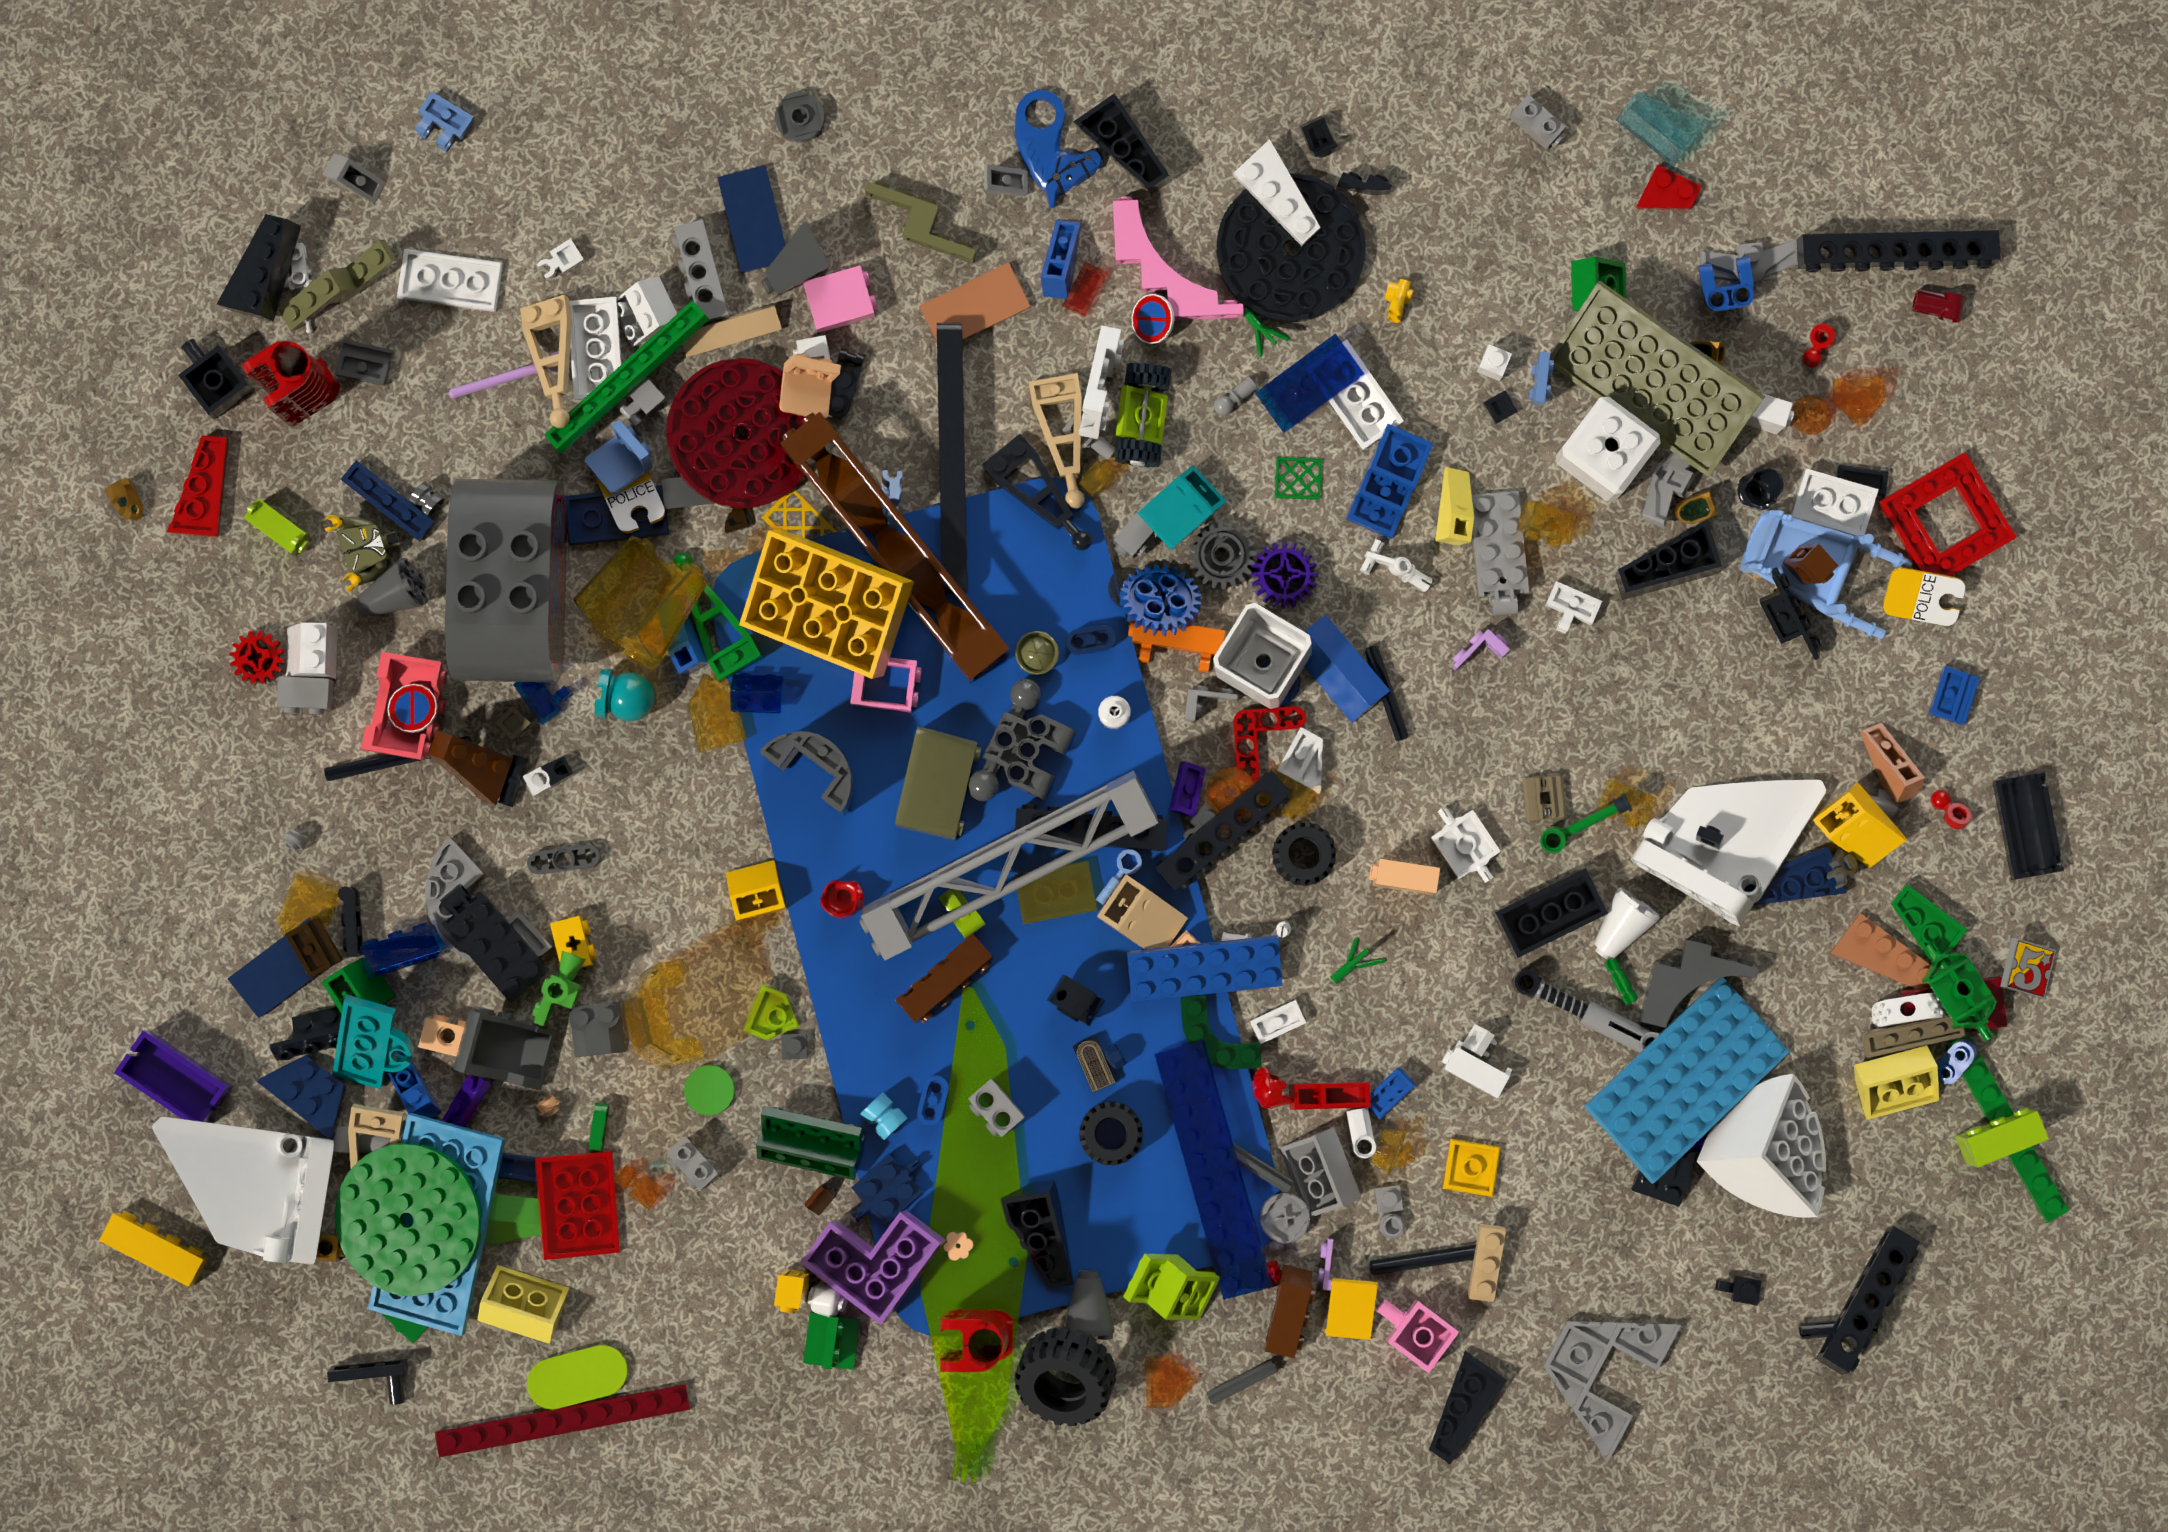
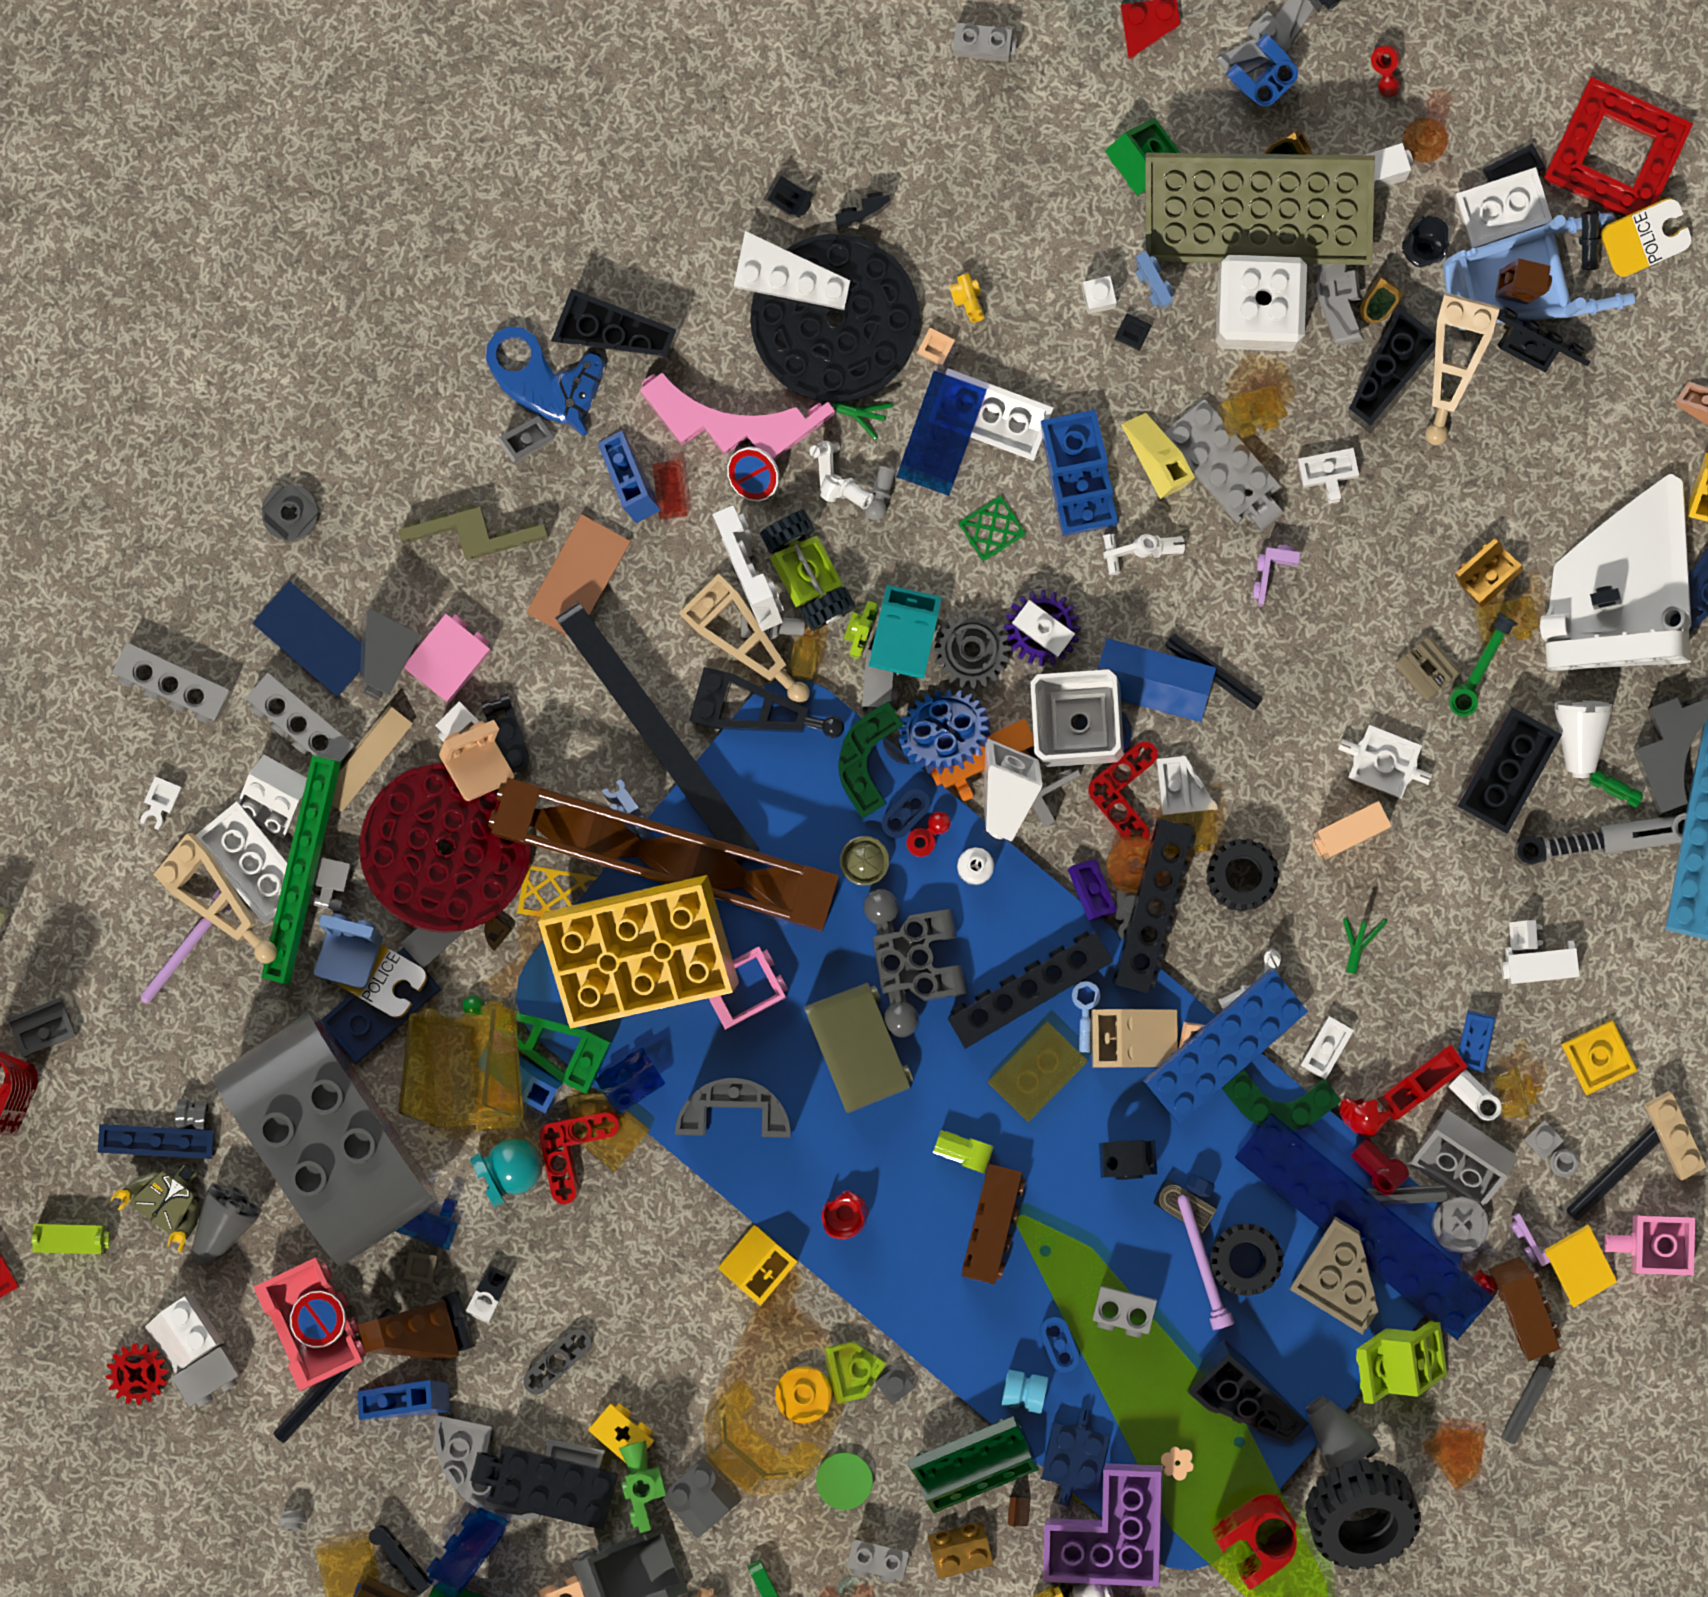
camera: 30 degrees left, 0 degrees up
(434, 810) = (404, 1400): none -> blue slope
(450, 280) = (68, 894): white tile -> none
(612, 145) = (134, 659): none -> light grey brick
(683, 703) = (566, 1139): none -> red beam
(724, 1007) = (804, 1394): none -> yellow tile
(757, 1198) = (960, 1550): none -> pearl gold bracket
(887, 924) = (919, 1218): light grey piece -> none
(1063, 1160) = (1219, 1316): none -> lavender piece
(1085, 570) = (855, 754): none -> dark green plate
(1109, 663) = (938, 824): none -> red plate
(1151, 484) = (859, 629): none -> lime plate
(1169, 1194) = (1339, 1277): none -> dark tan plate
(1178, 672) = (1009, 788): none -> white slope
(1205, 367) = (832, 485): none -> white pin
(1256, 1141) = (1385, 1172): none -> dark red piece
(1284, 574) = (1043, 628): none -> white plate
(1349, 319) = (936, 347): none -> light nougat plate
(1637, 759) = (1488, 572): none -> pearl gold bracket
(1751, 559) = (1468, 315): none -> tan plate
(1858, 396) = (1456, 92): clear orange plate -> none
(1881, 570) = (1590, 240): none -> black pin

